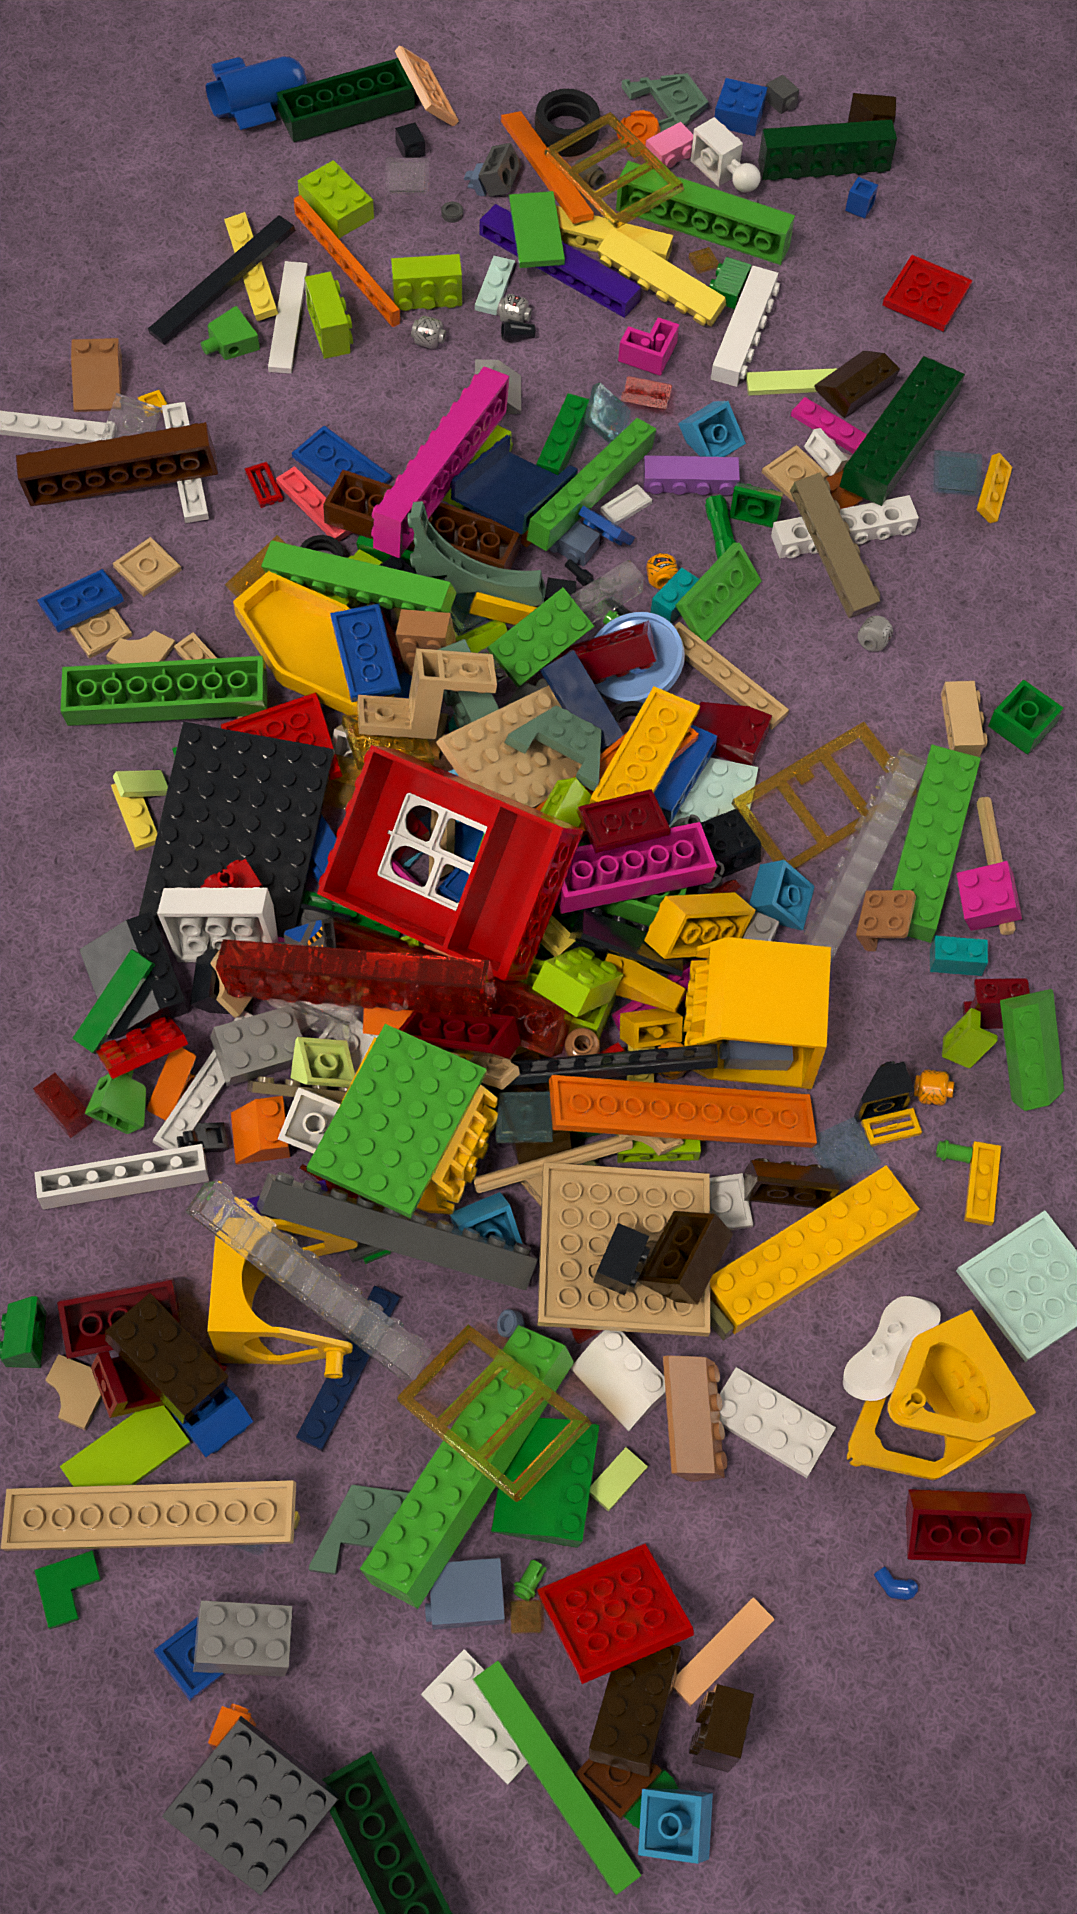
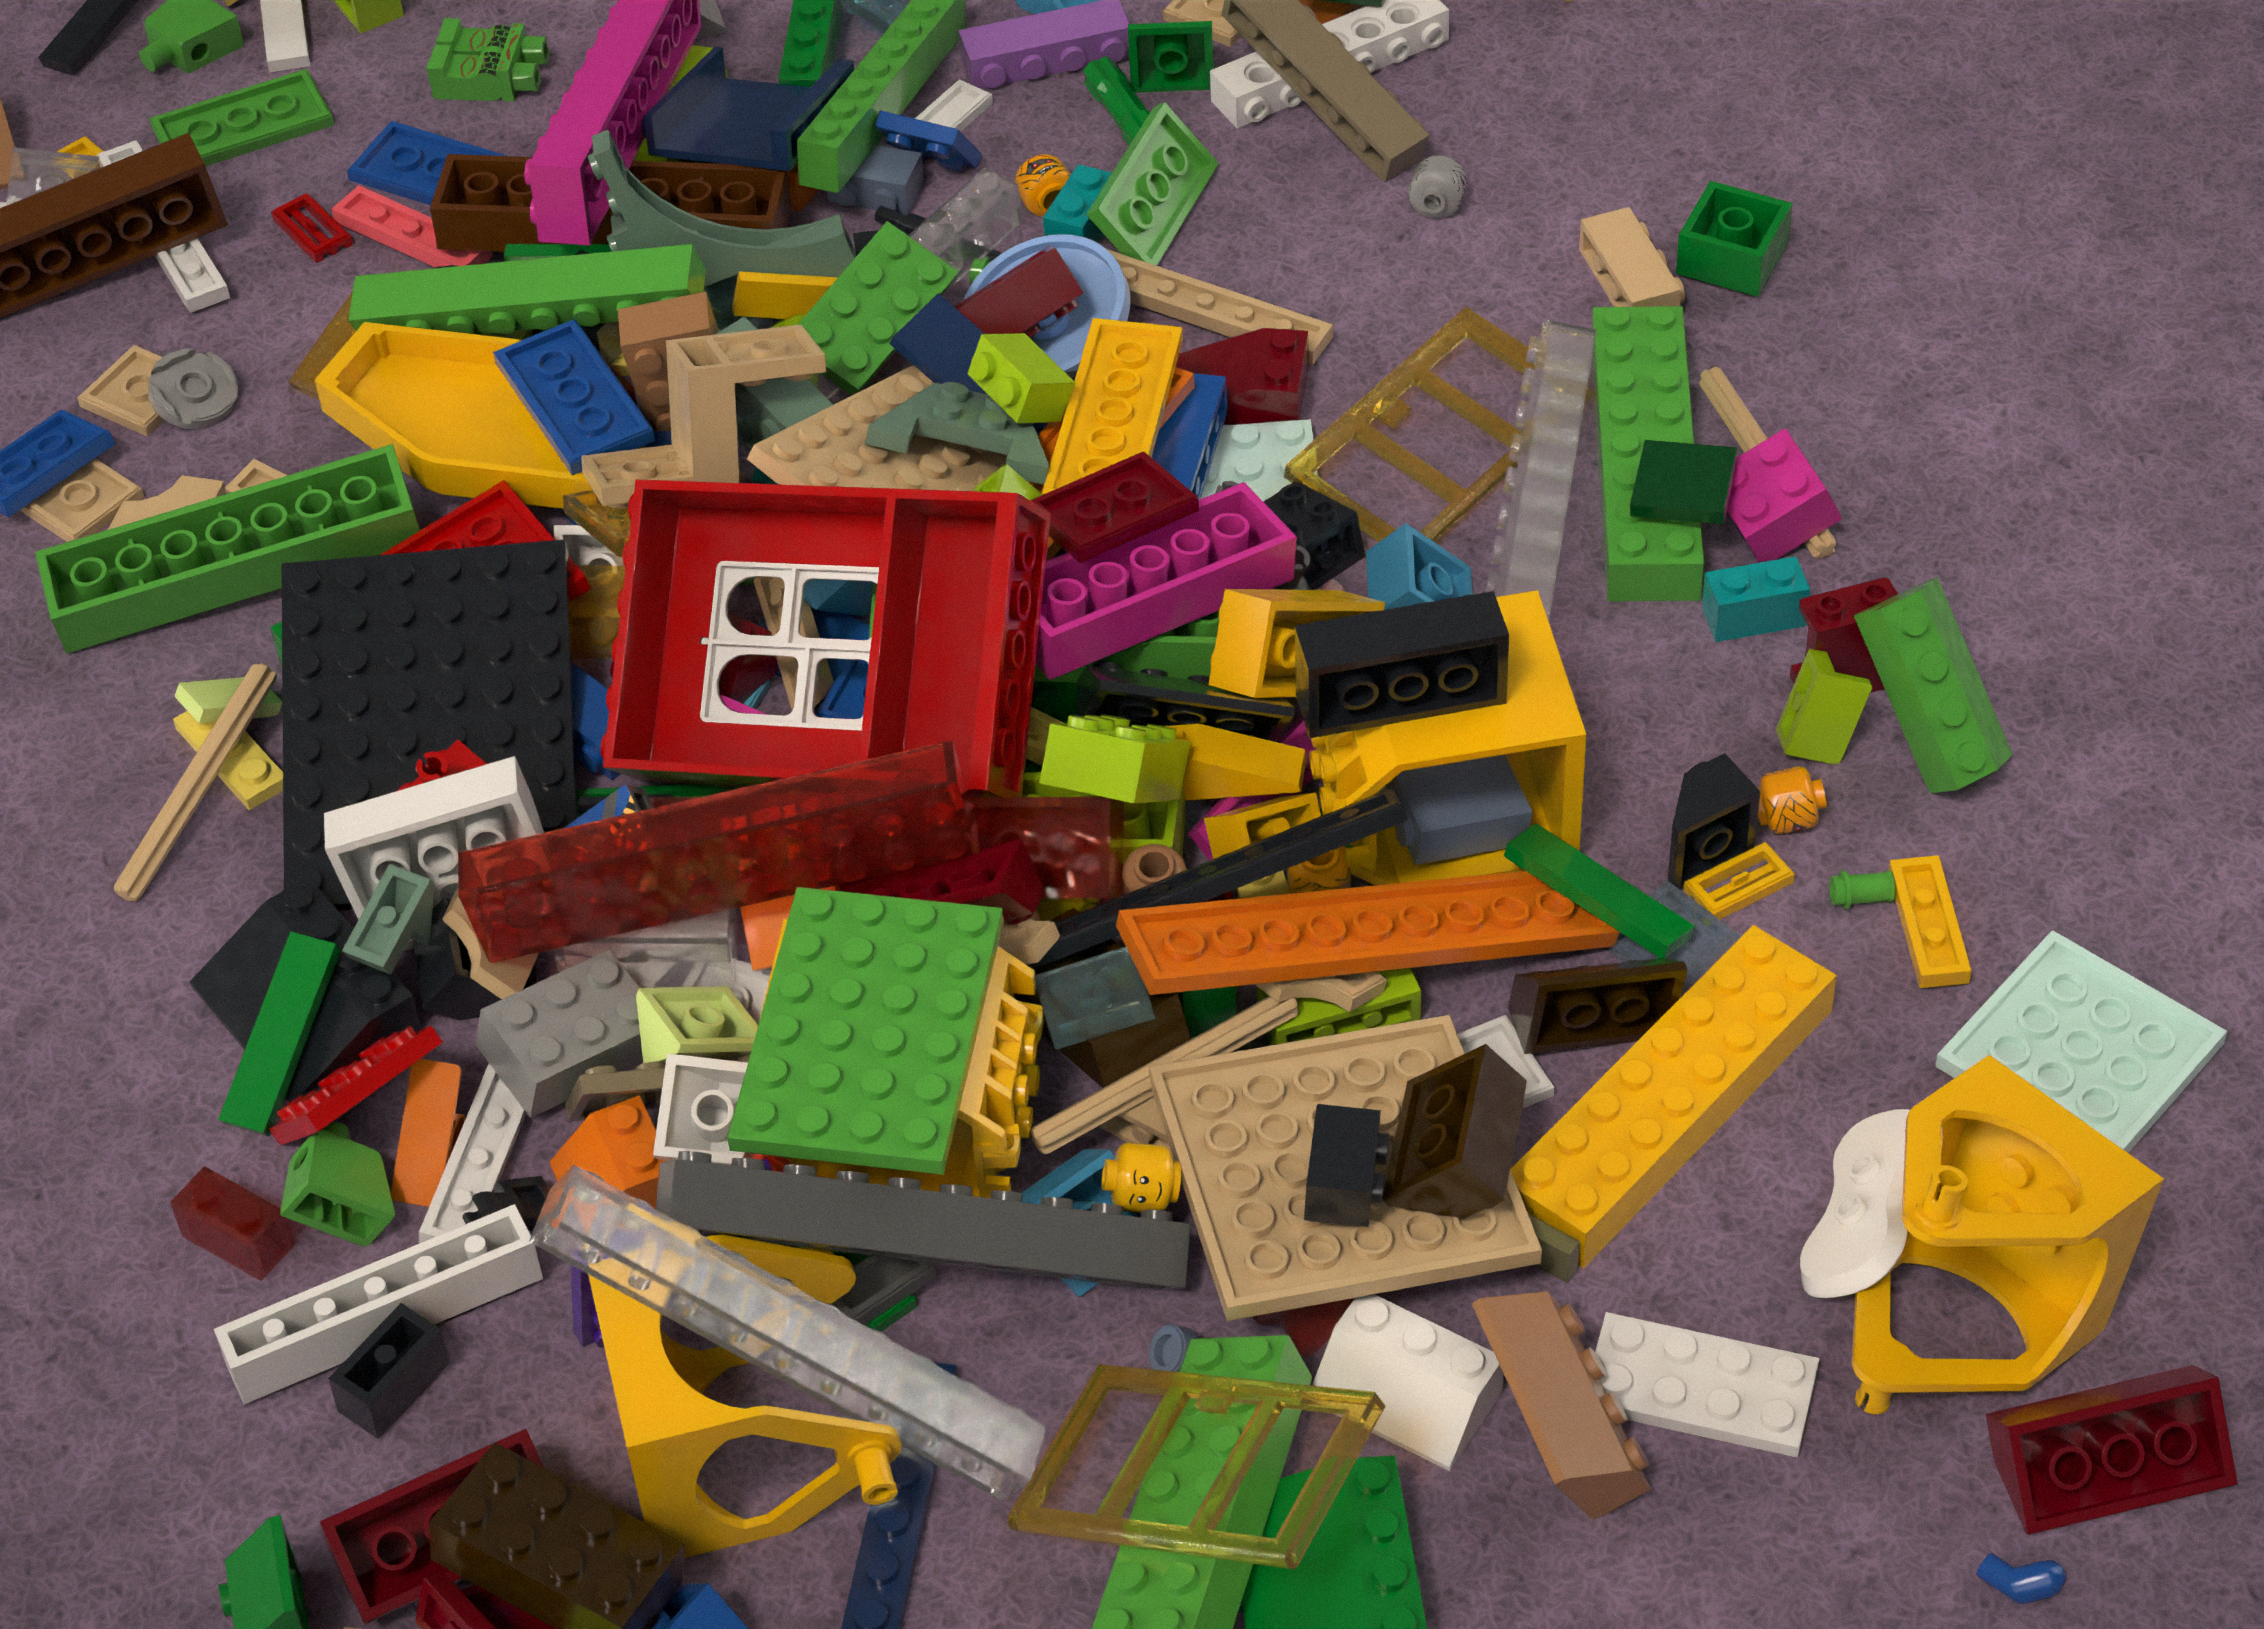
camera: 10 degrees left, 15 degrees down
(111, 831) = (195, 783): none -> tan axle
(116, 1217) = (389, 1370): none -> black brick
(173, 576) = (192, 389): none -> light grey tile
(187, 953) = (392, 917): none -> sand green slope
(245, 402) = (248, 118): none -> bright green tile
(384, 400) = (485, 62): none -> bright green hips
(520, 1227) = (1142, 1177): none -> yellow head
(601, 719) = (1021, 378): none -> lime brick
(617, 1479) = (1458, 1548): yellowish green tile -> none
(739, 982) = (1401, 664): none -> black brick
(814, 1116) = (1599, 891): none -> green tile
(885, 916) = (1607, 564): medium nougat bracket -> none
(941, 878) = (1684, 482): none -> dark green tile

